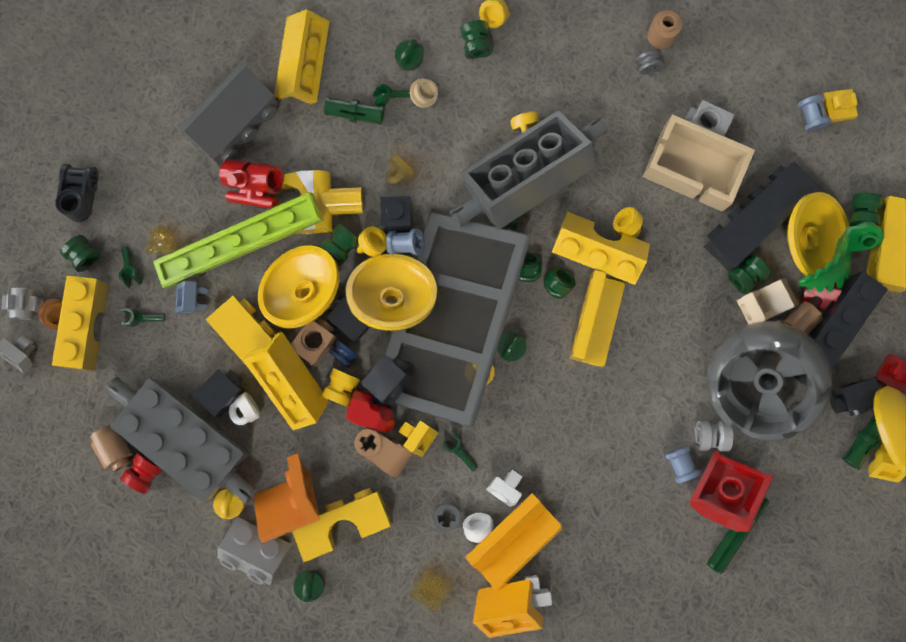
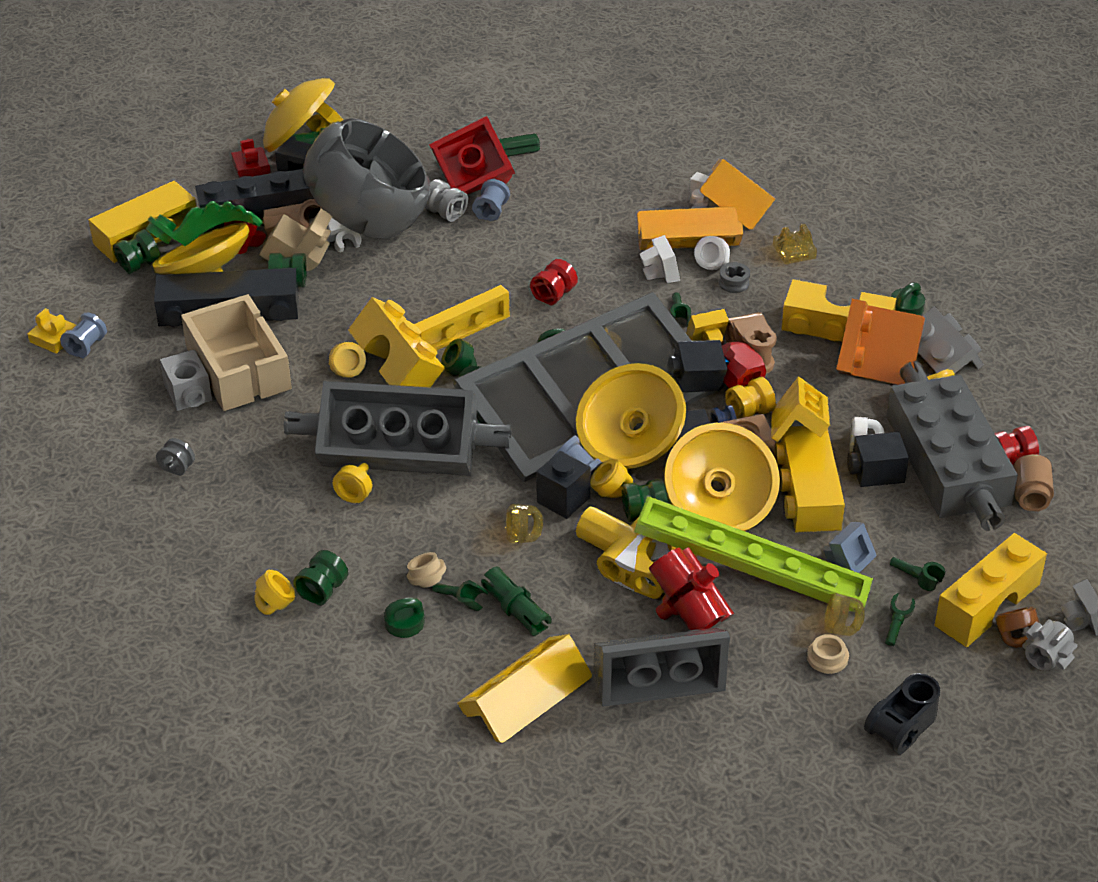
camera: 140 degrees left, 40 degrees down
(80, 253) = (945, 654): dark green wheel -> none
(151, 208) = (828, 654): none -> tan plate
(561, 405) = (553, 282): none -> red wheel
(664, 29) = (132, 464): medium nougat brick -> none

